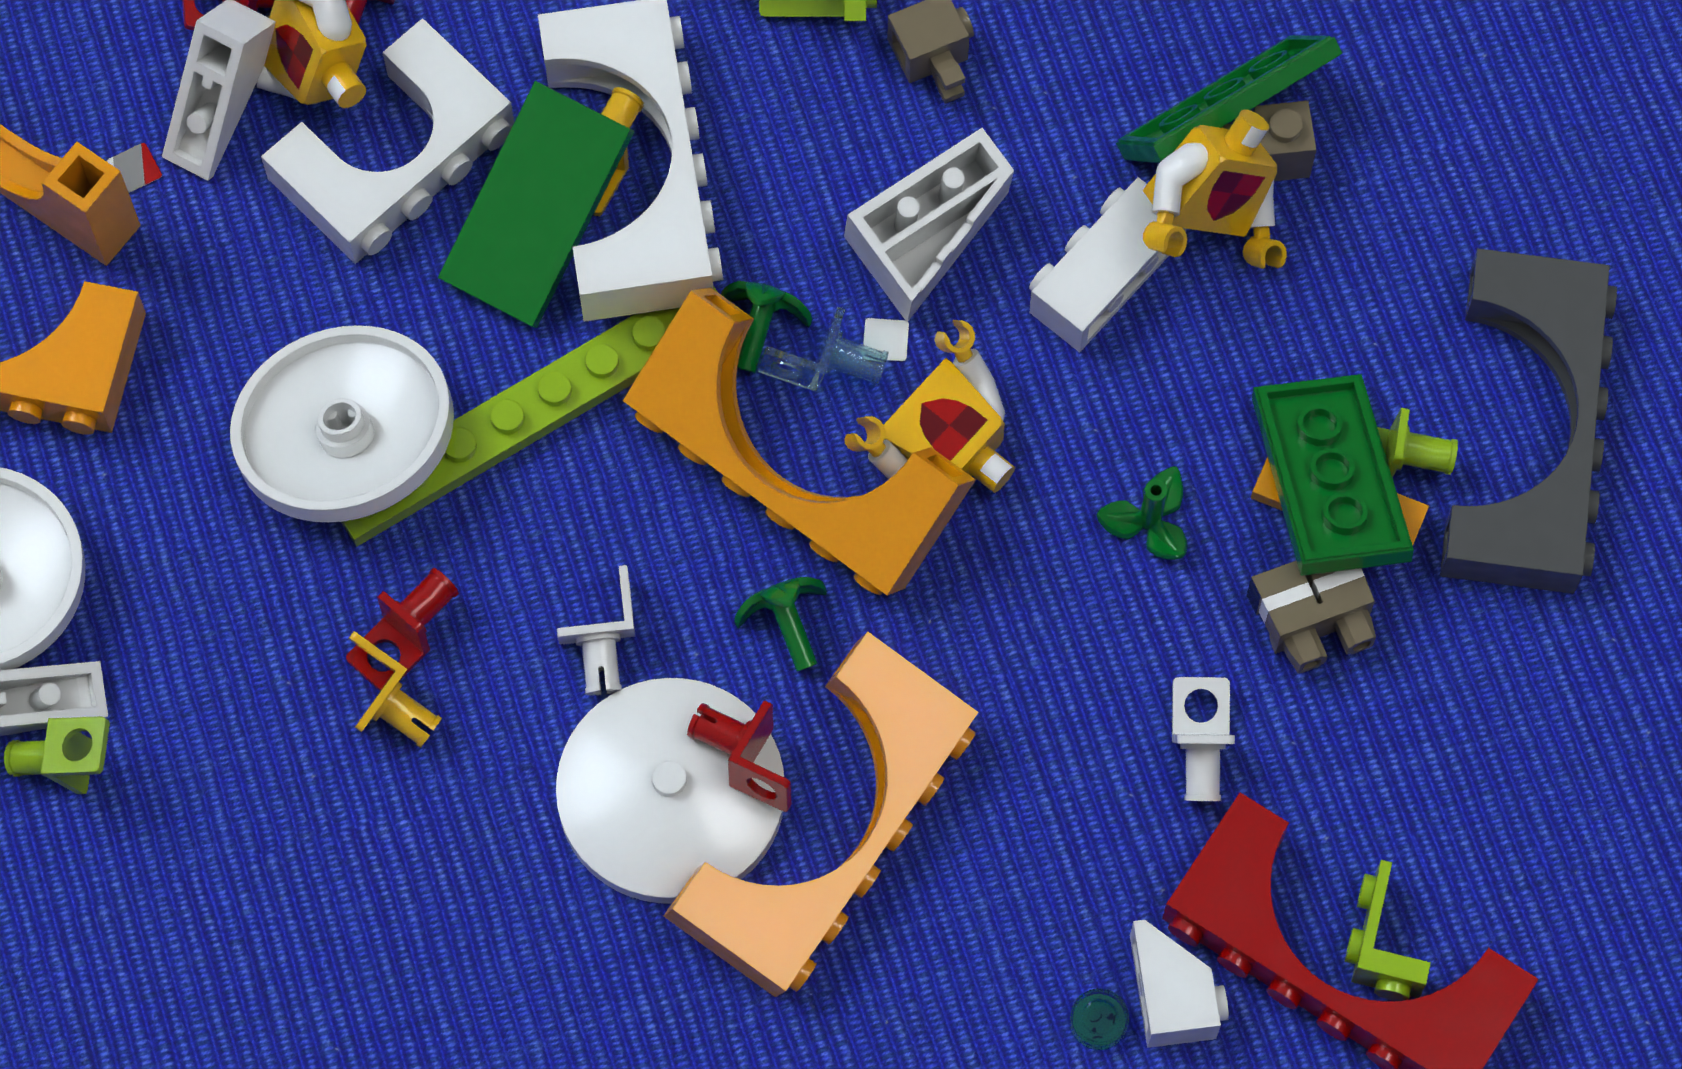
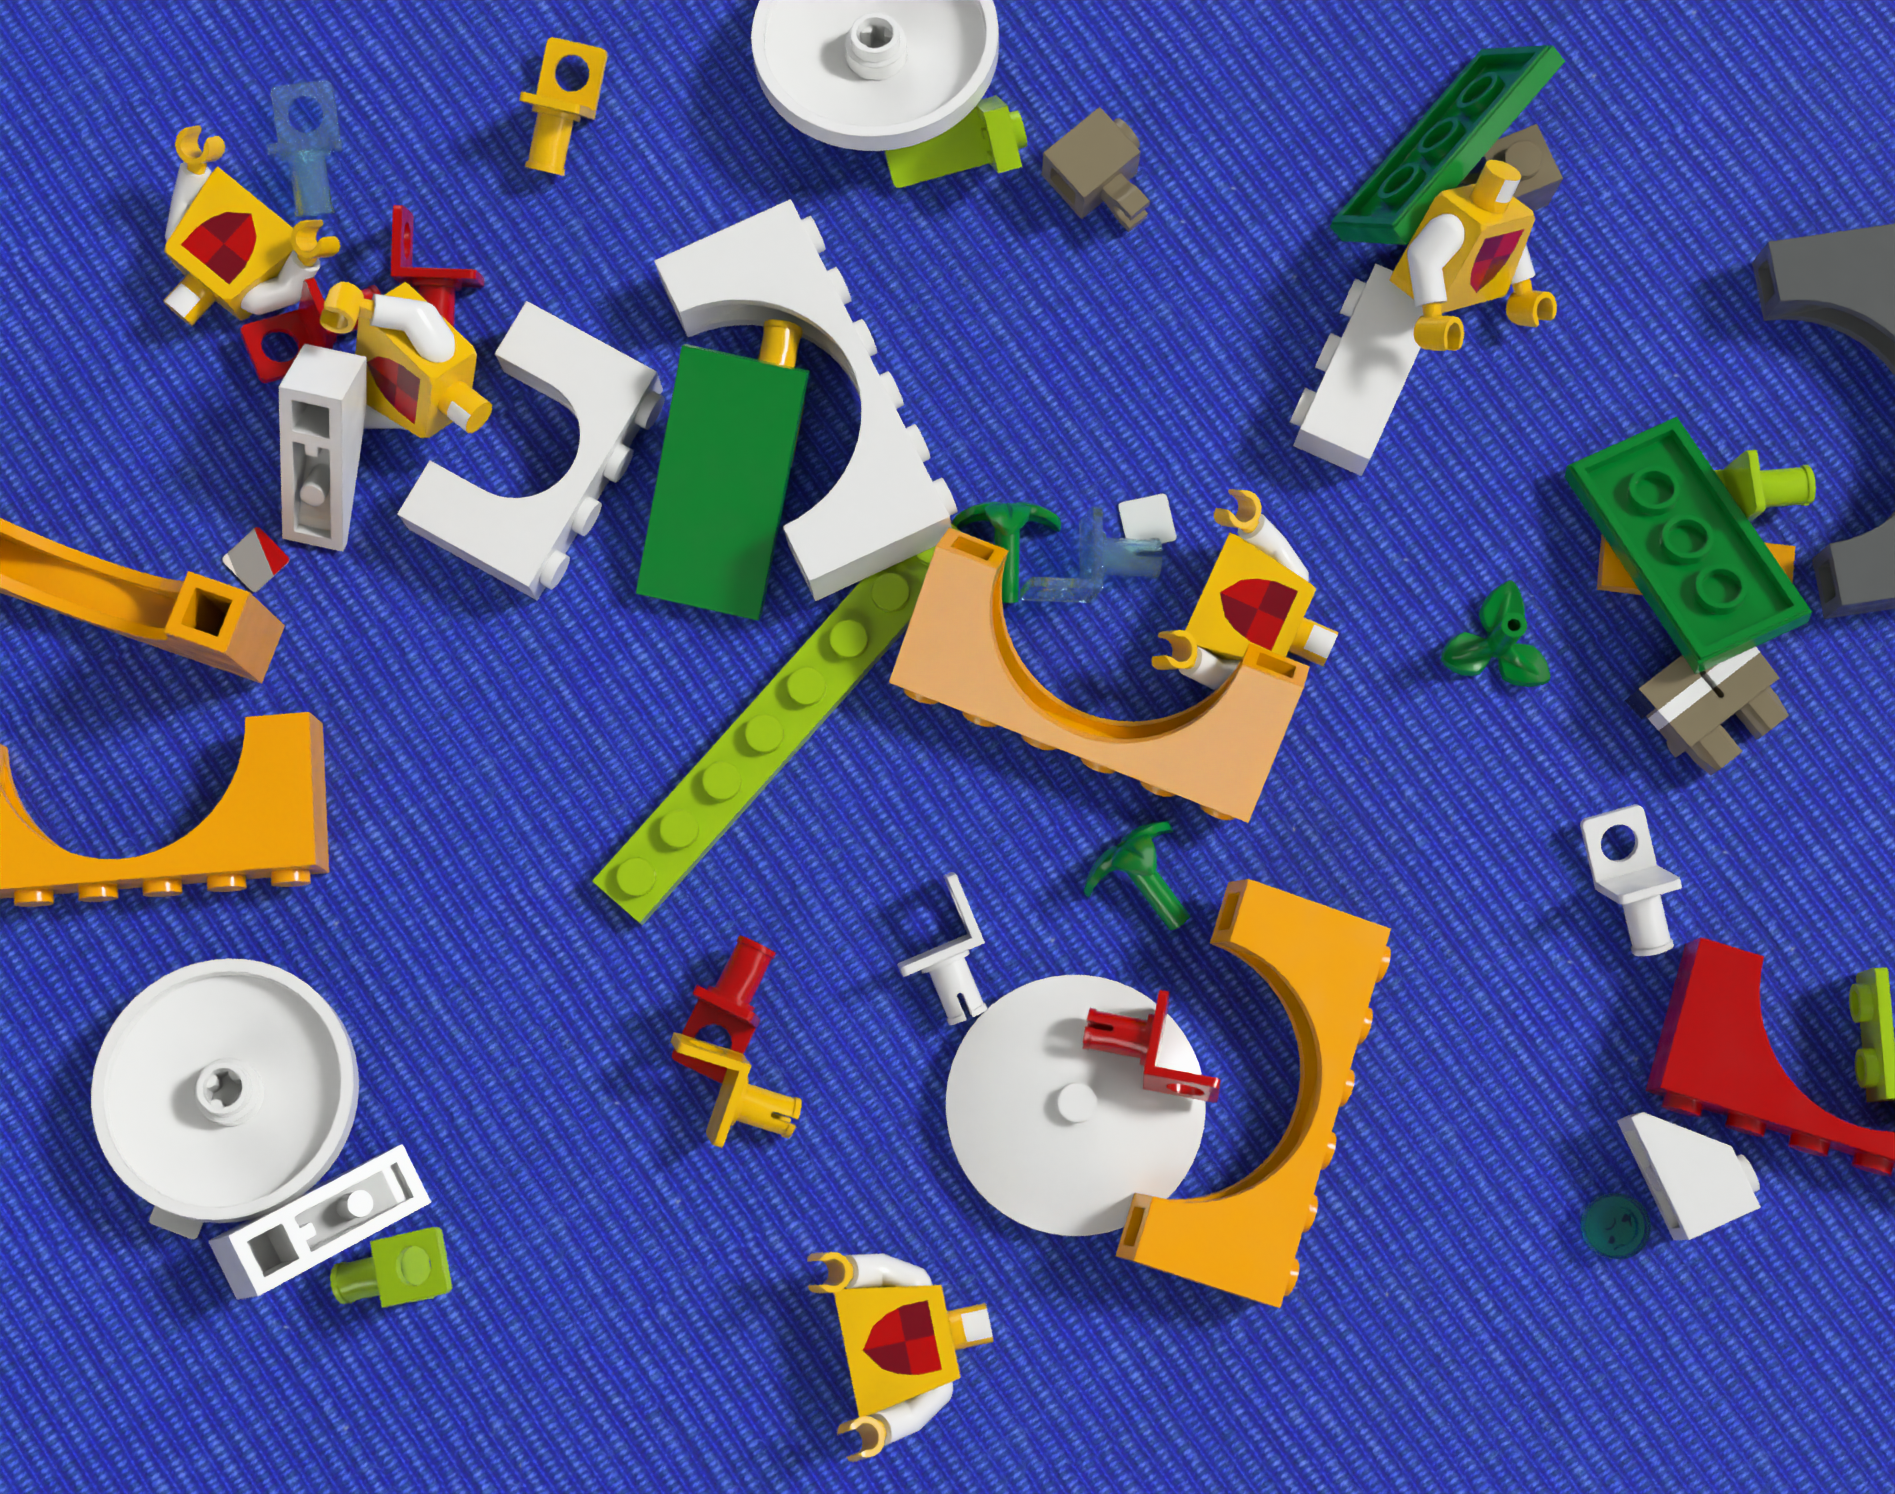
camera: 15 degrees left, 10 degrees up
(342, 423) = (586, 798): white dish -> none
(456, 931) = (897, 1343): none -> torso
(928, 219) = (1158, 378): white wedge -> none

